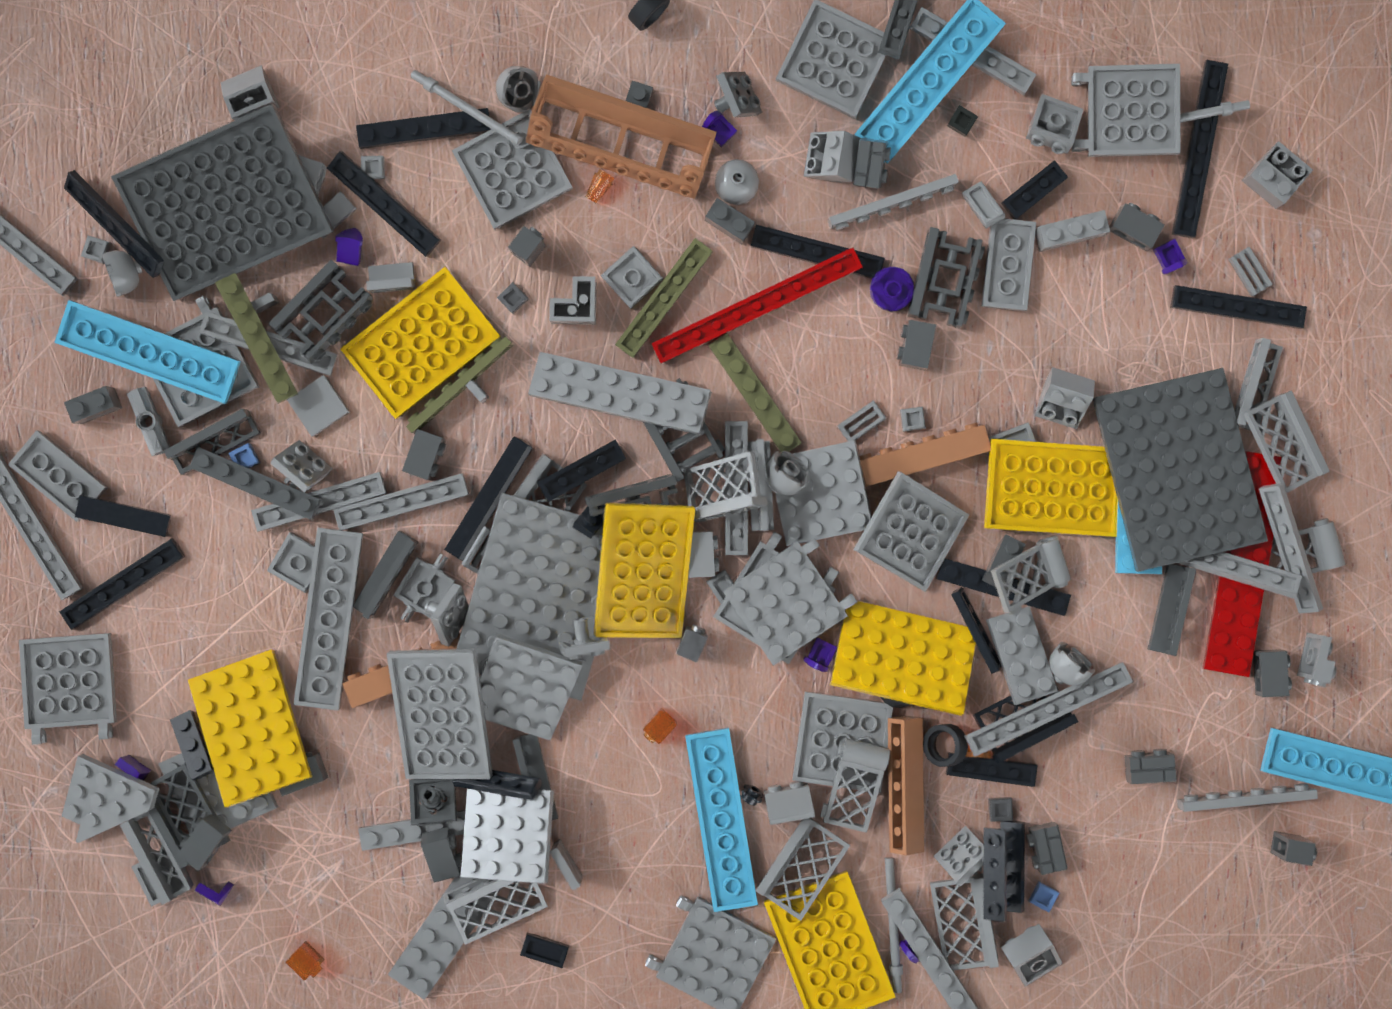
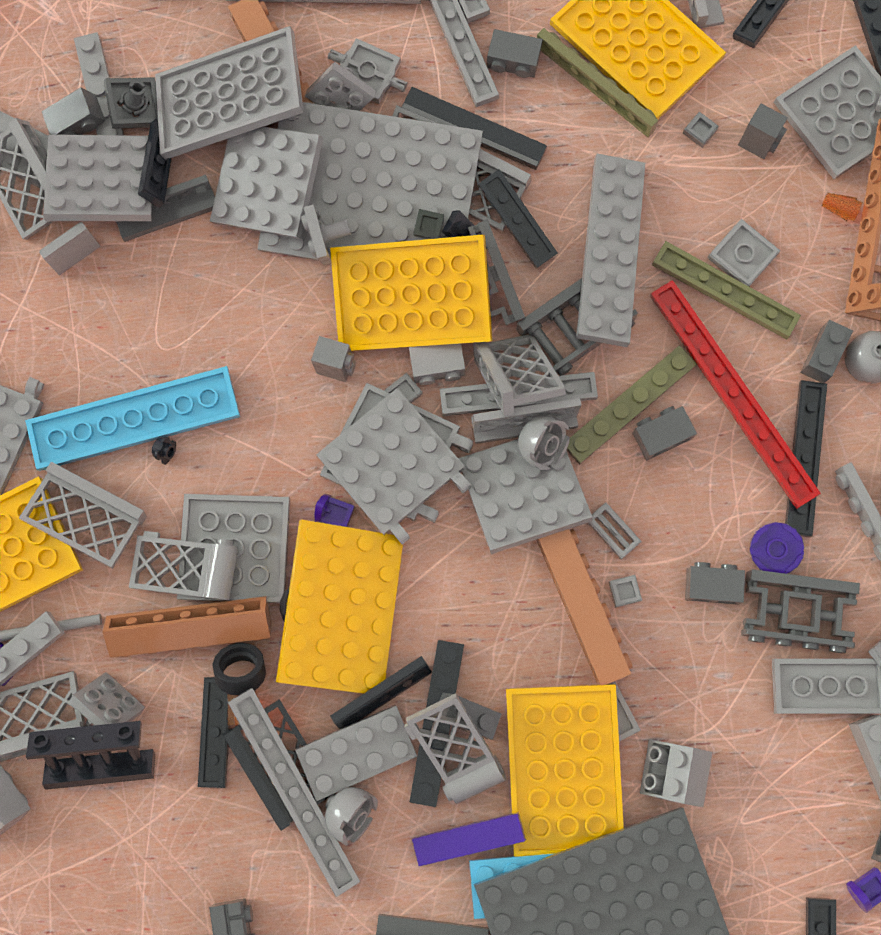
camera: 90 degrees right, 10 degrees down
(385, 574) = (377, 30): dark grey fence -> none
(477, 391) = (591, 101): light grey tile -> none
(580, 308) = (703, 198): light grey brick -> none
(582, 549) = (428, 224): none -> pearl dark grey plate
(659, 726) = (235, 337): clear orange brick -> none
(784, 369) = (664, 432): none -> dark grey brick
(788, 803) = (156, 490): light grey slope -> none
(911, 531) = (491, 599): light grey plate -> none
(1000, 809) = (167, 748): flat silver tile -> none
(1043, 896) = (65, 813): medium blue tile -> none
(1047, 848) = (123, 811): dark grey brick -> none
(1099, 571) = (468, 839): none -> dark purple tile

